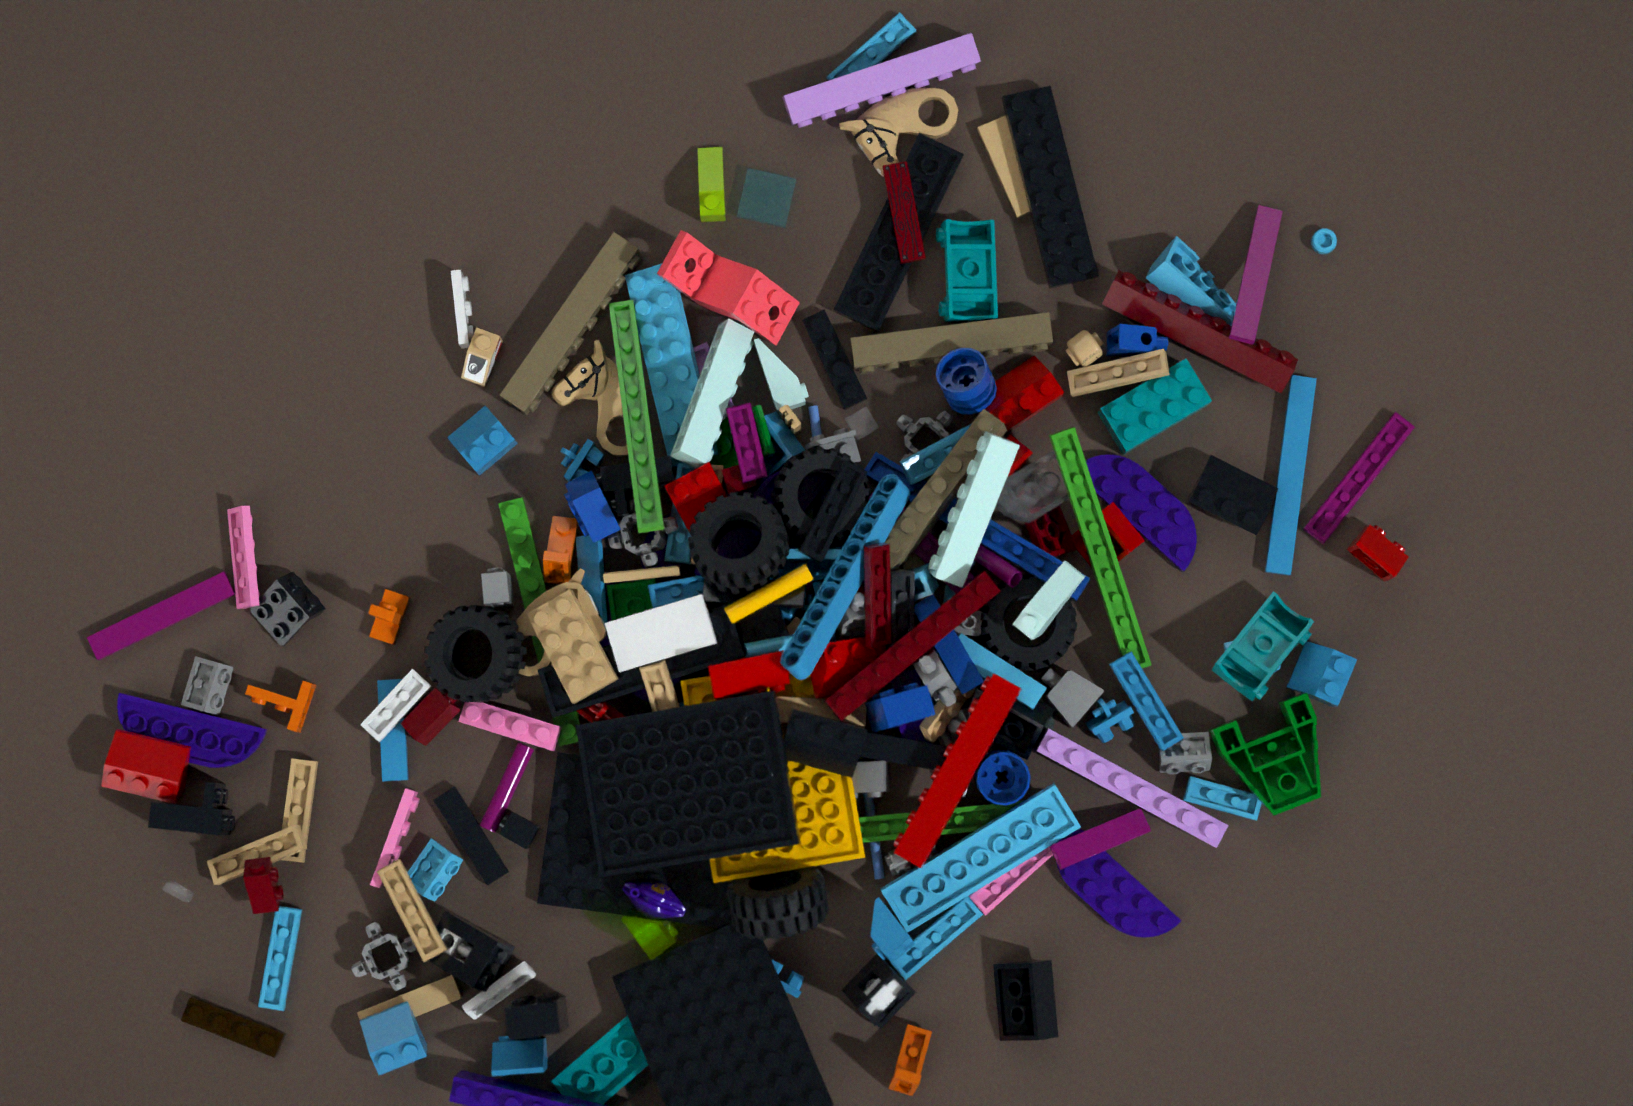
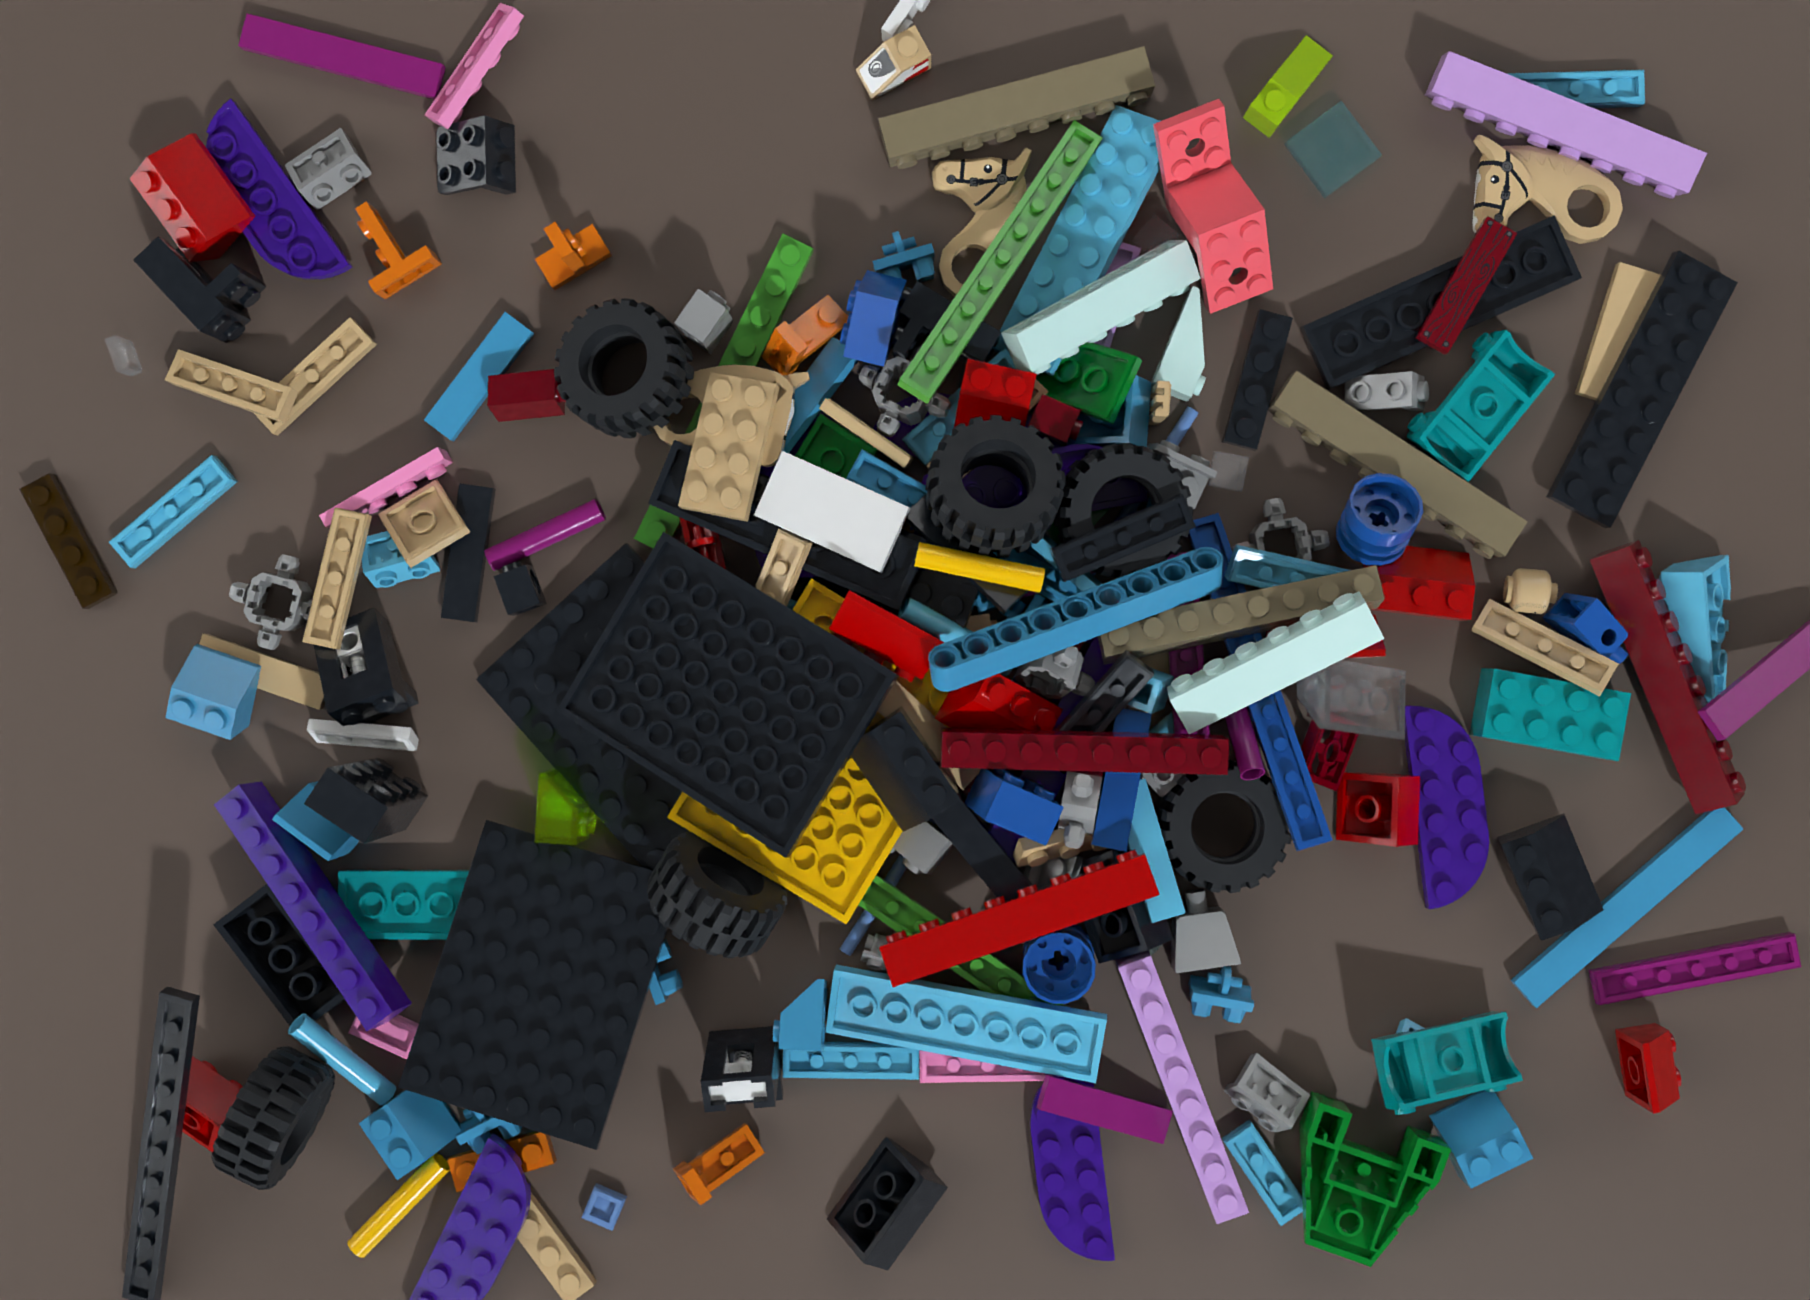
camera: 40 degrees right, 5 degrees up
(262, 885) = (208, 421): dark red brick -> none
(396, 705) = (500, 353): white plate -> none
(432, 838) = (423, 523): none -> tan tile
(482, 440) = (820, 154): dark azure slope -> none
(510, 724) = (602, 475): bright pink plate -> none
(654, 899) = (595, 778): dark purple hat -> none
(746, 442) = (1093, 387): magenta tile -> none
(877, 595) = (1093, 666): dark red tile -> none
(912, 305) = (1388, 391): none -> light grey bracket
(1049, 601) = (1270, 828): light aqua slope -> none
(1099, 545) = (1367, 813): bright green plate -> none
(1146, 701) = (1275, 1011): dark azure tile -> none

